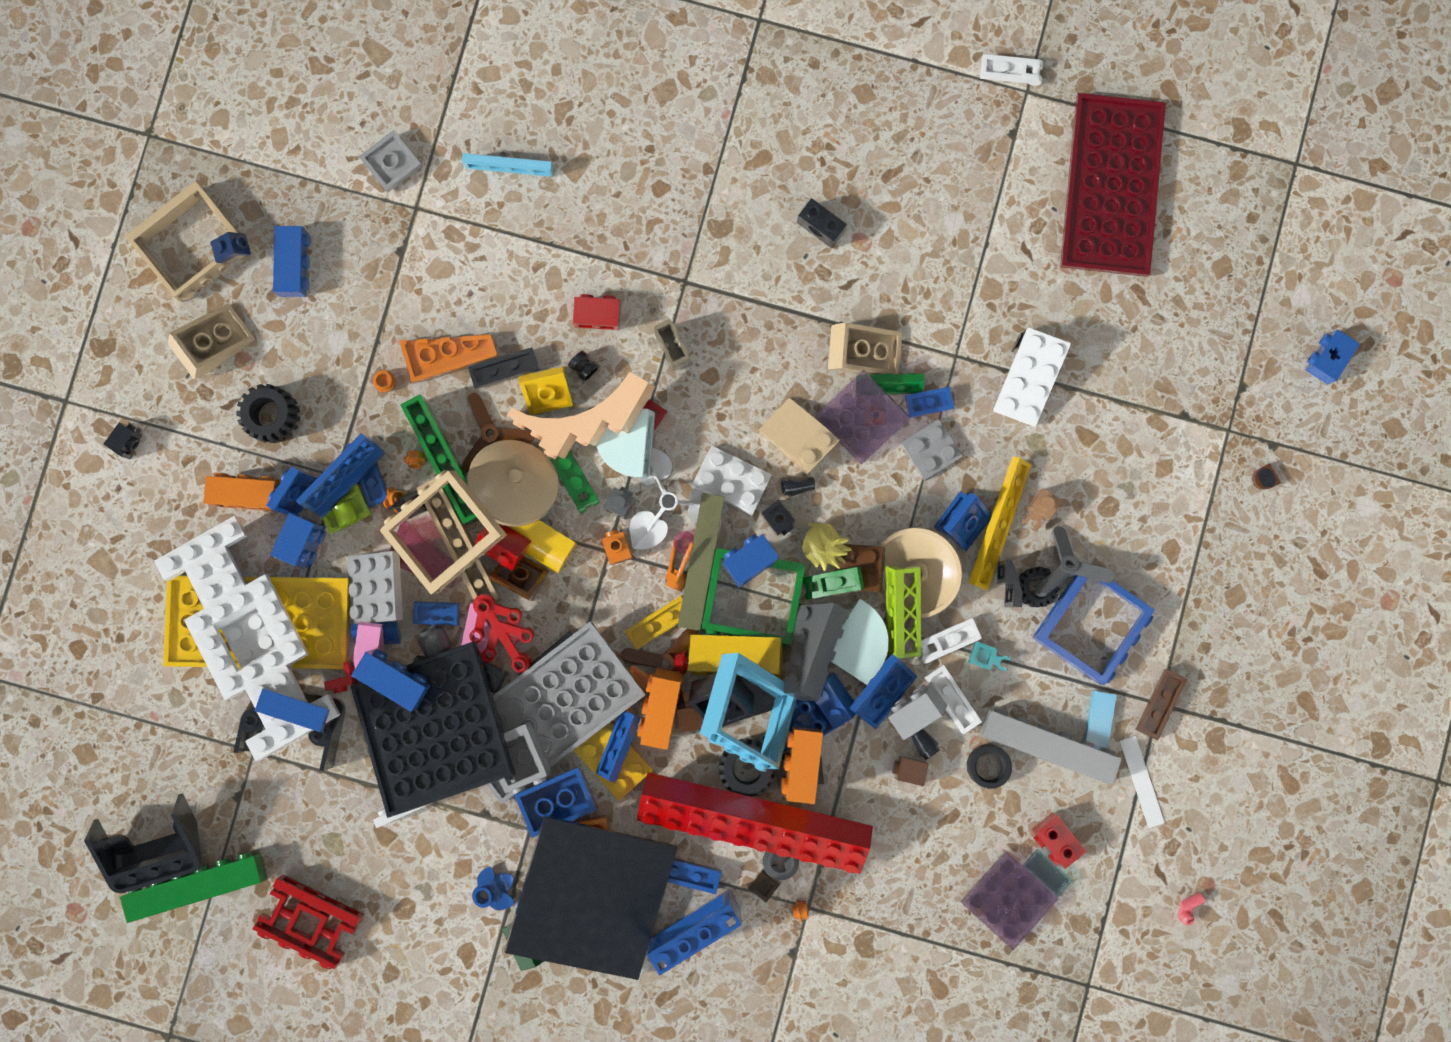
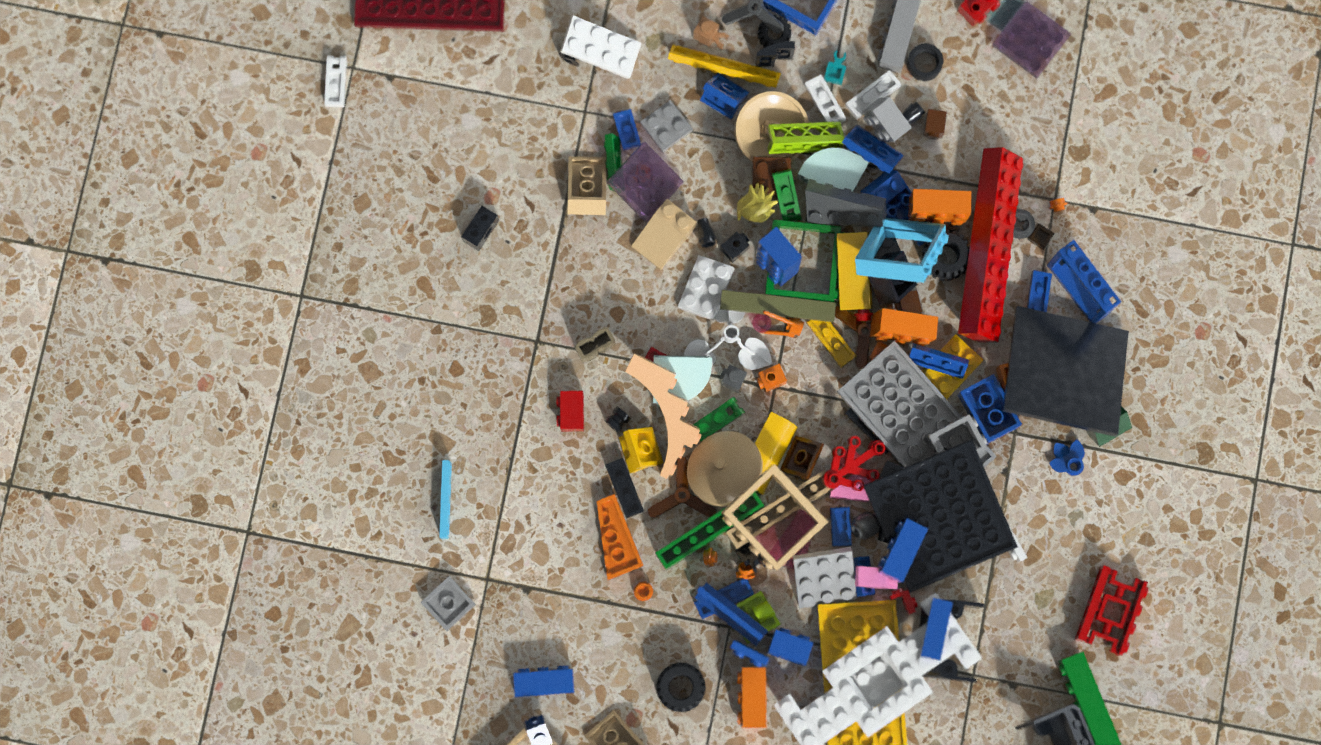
camera: 90 degrees left, 5 degrees down
(508, 550) = (785, 463): red brick -> none

